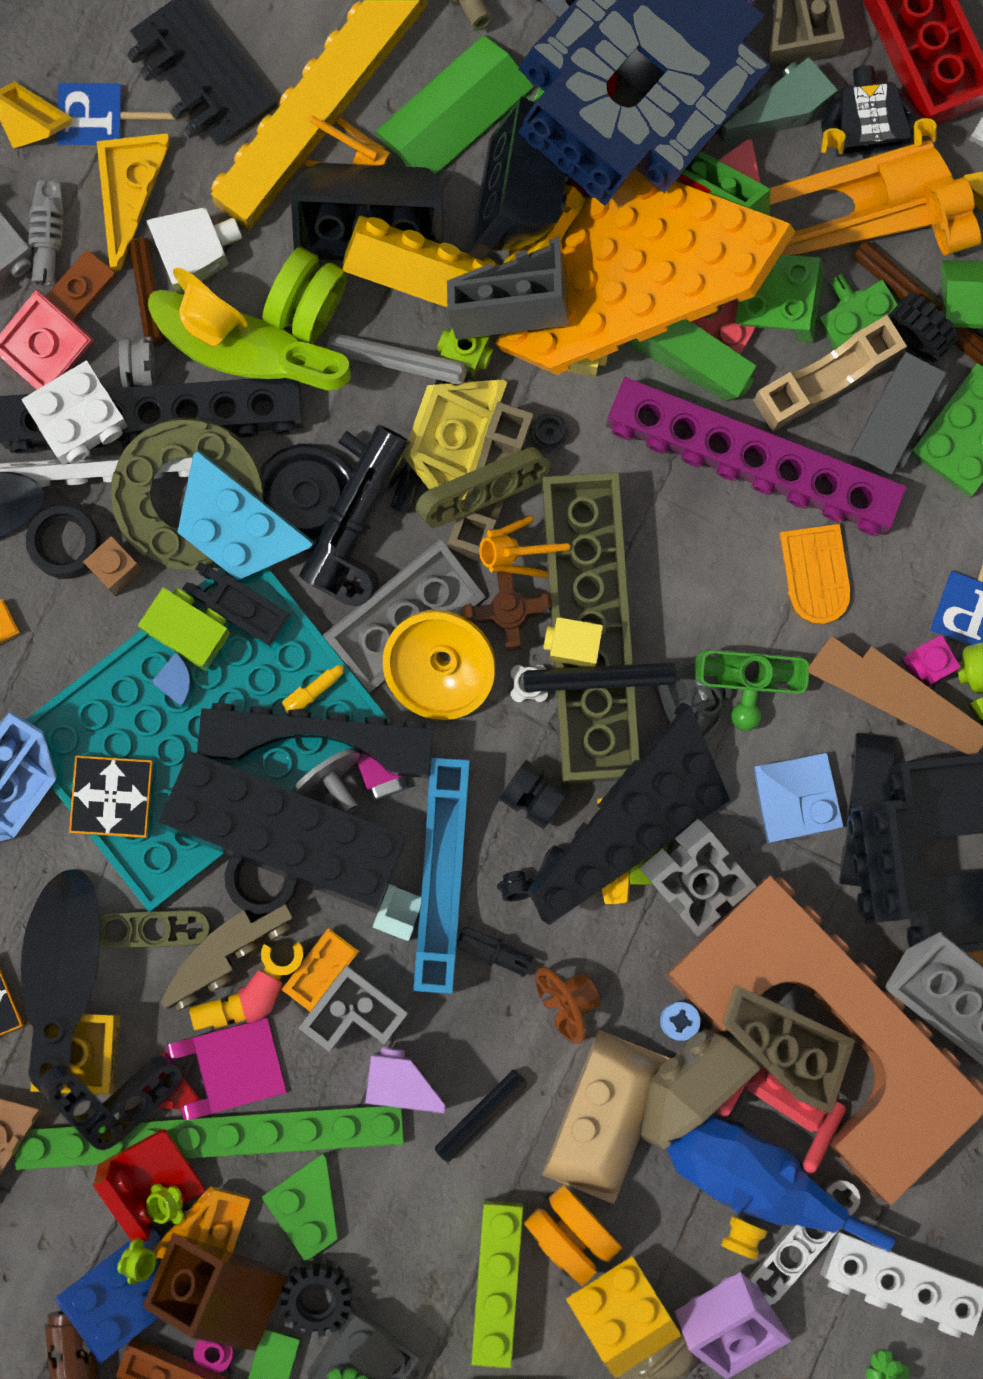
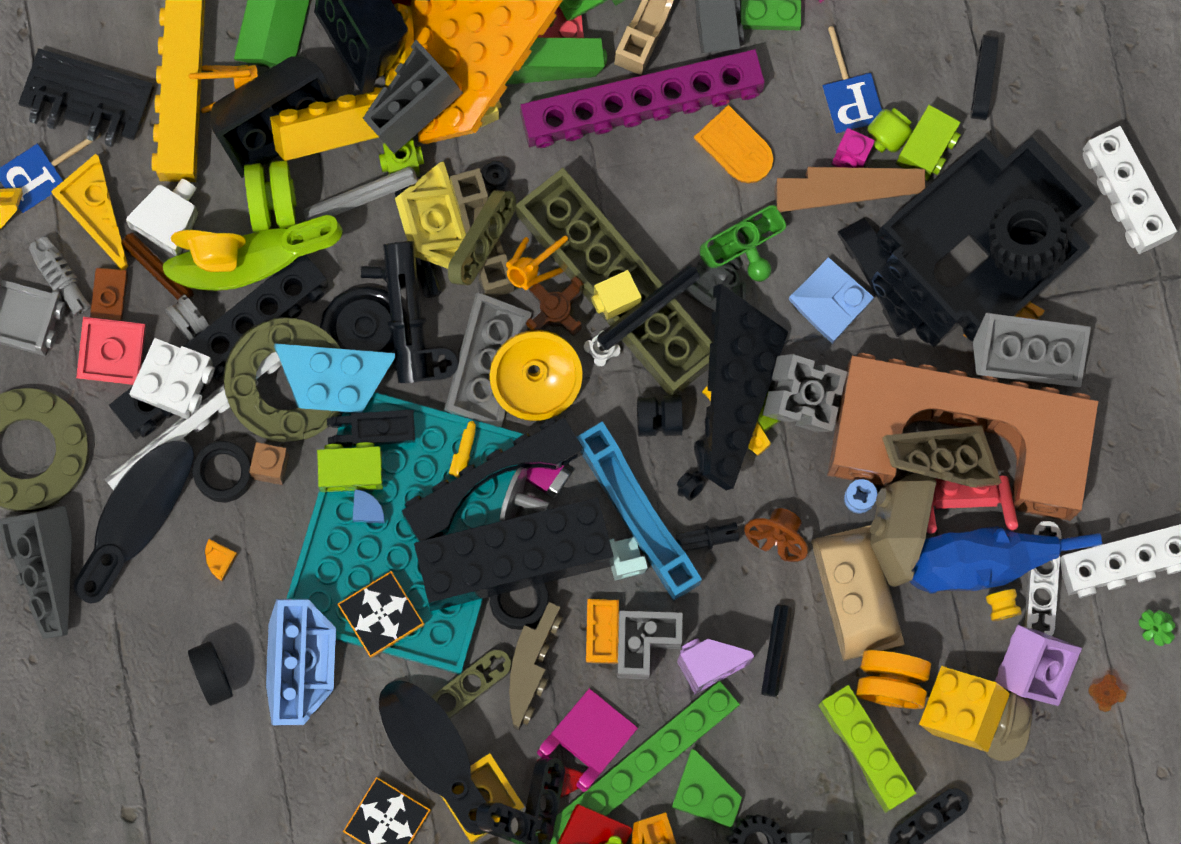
camera: 40 degrees left, 5 degrees down
(253, 1000) = (572, 681): piece -> none

